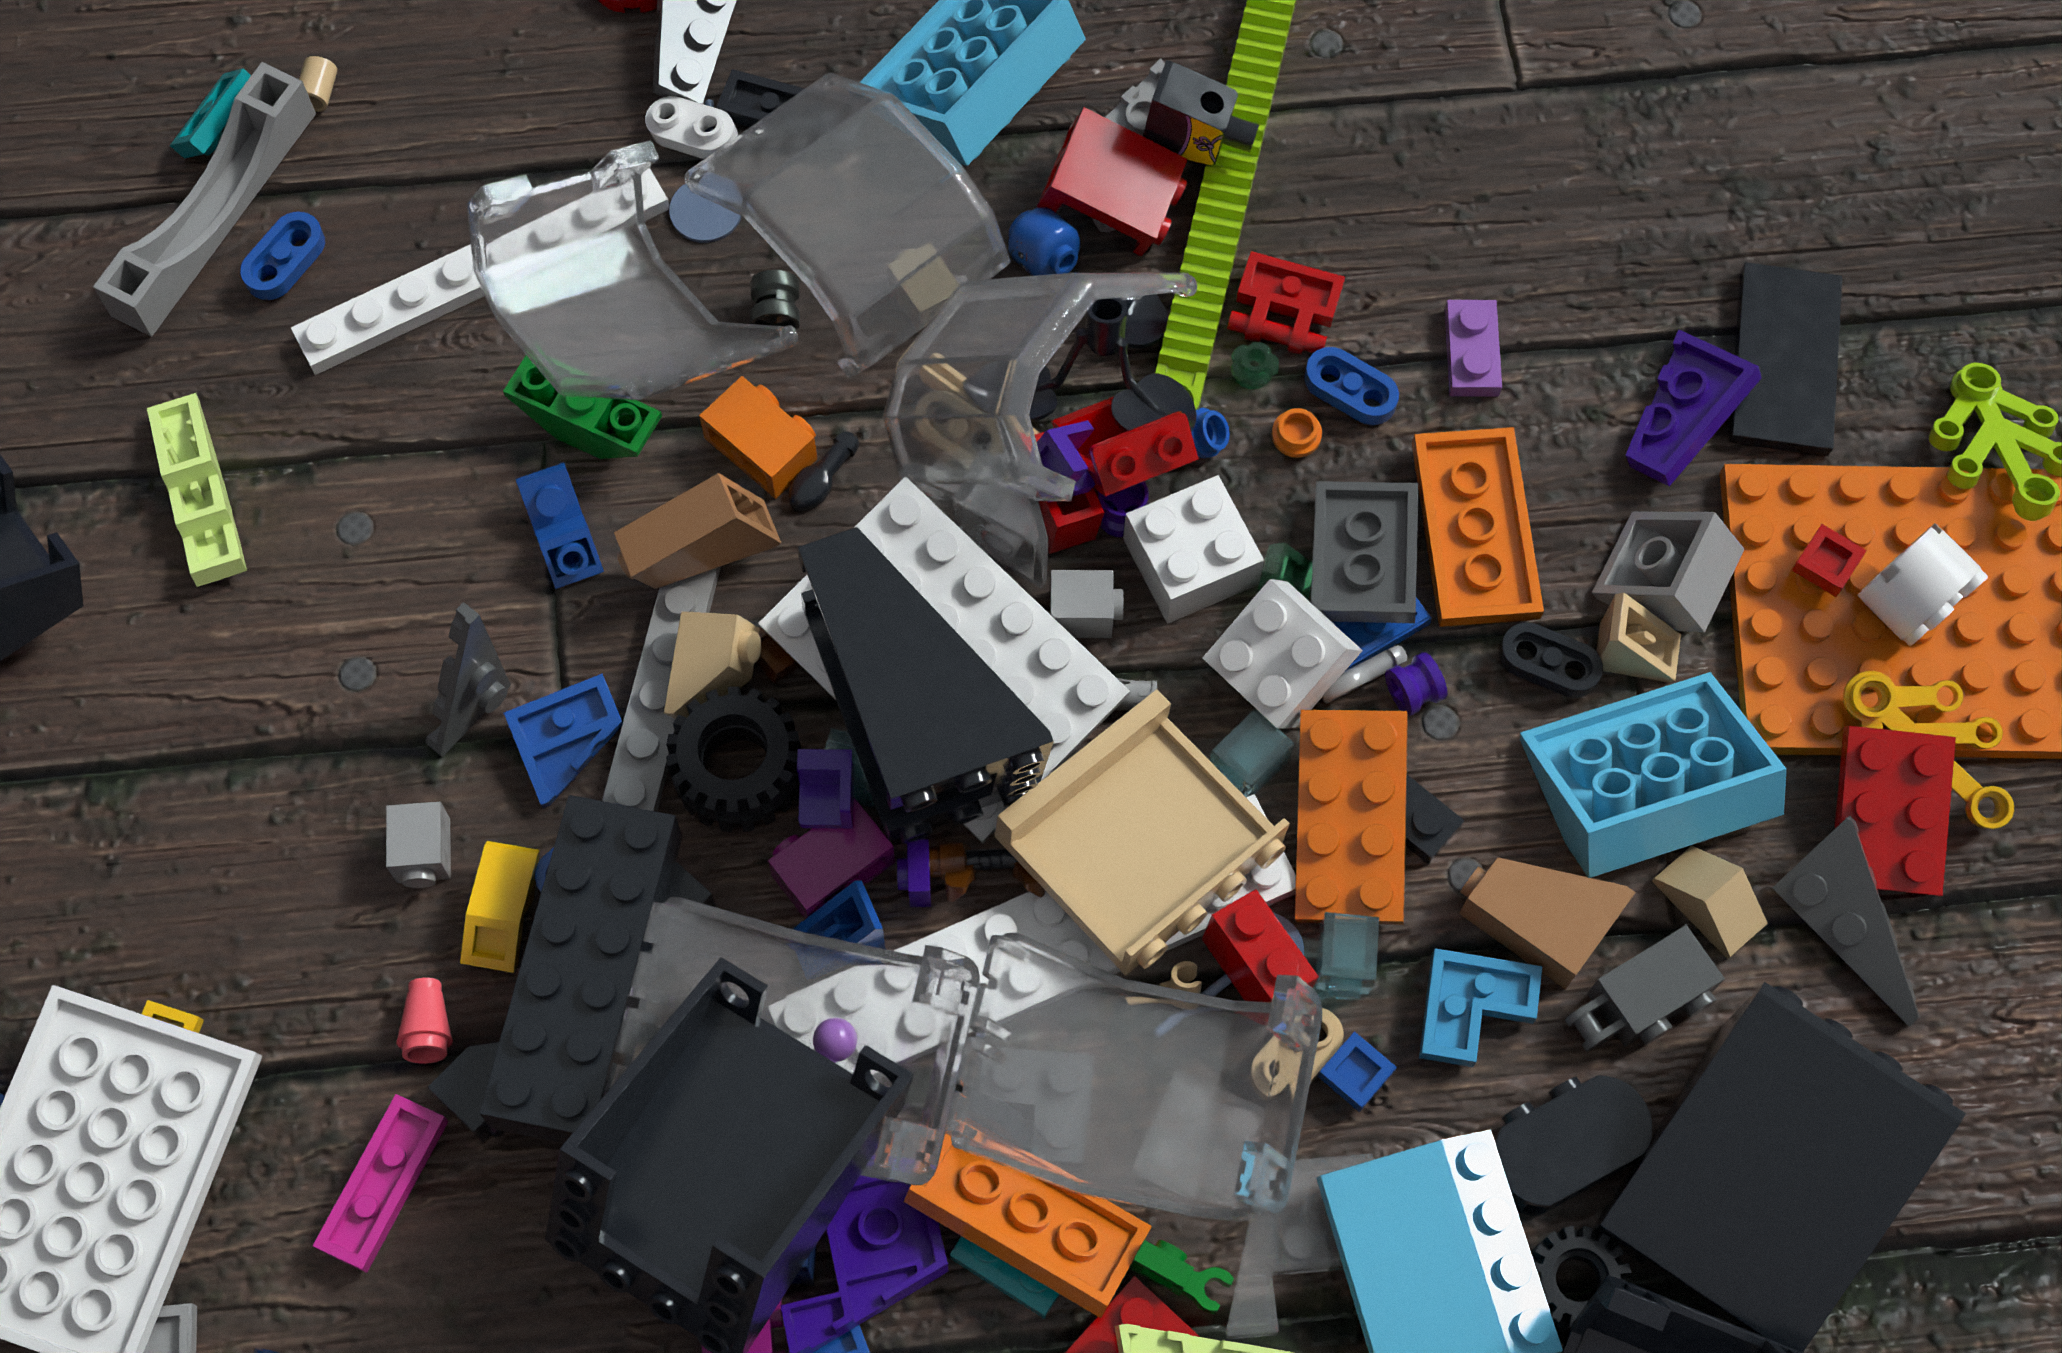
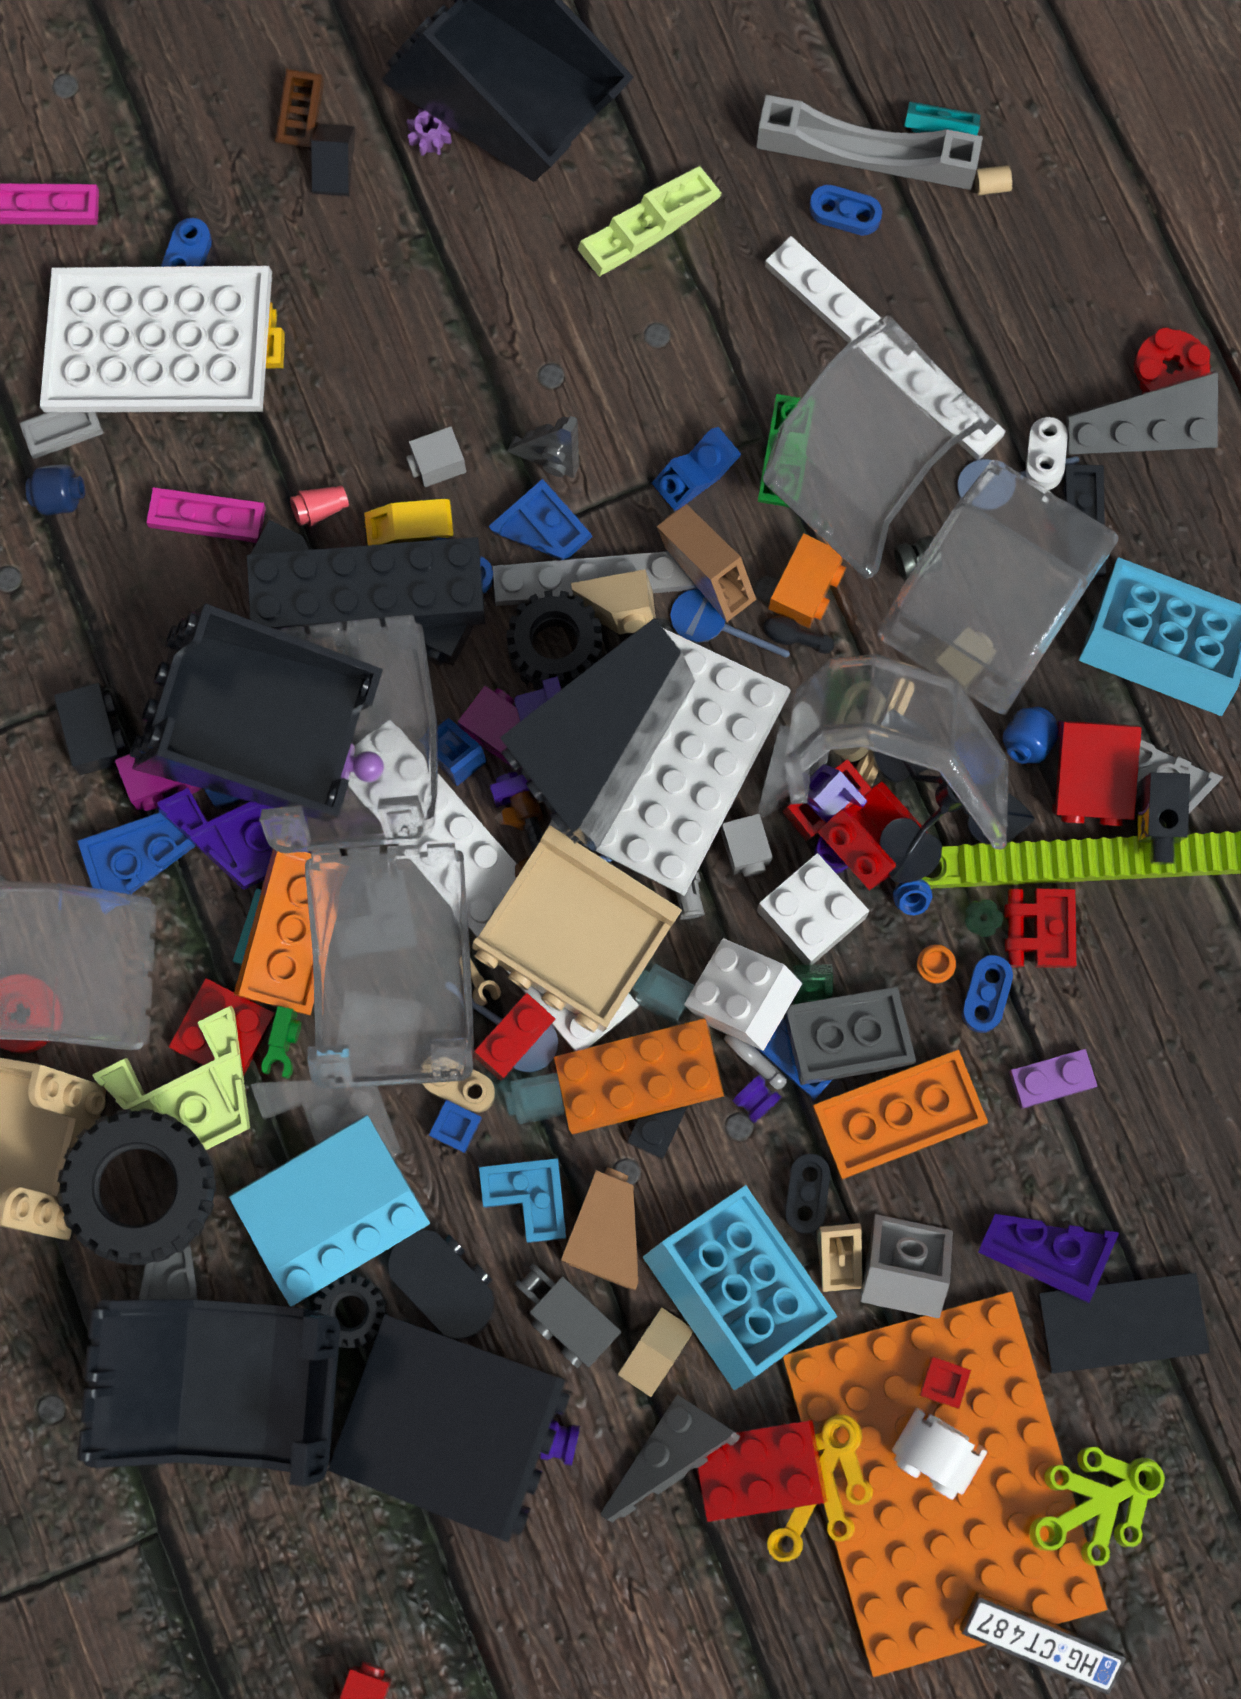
camera: 75 degrees right, 10 degrees up
(761, 581) = (700, 622): none -> blue piece

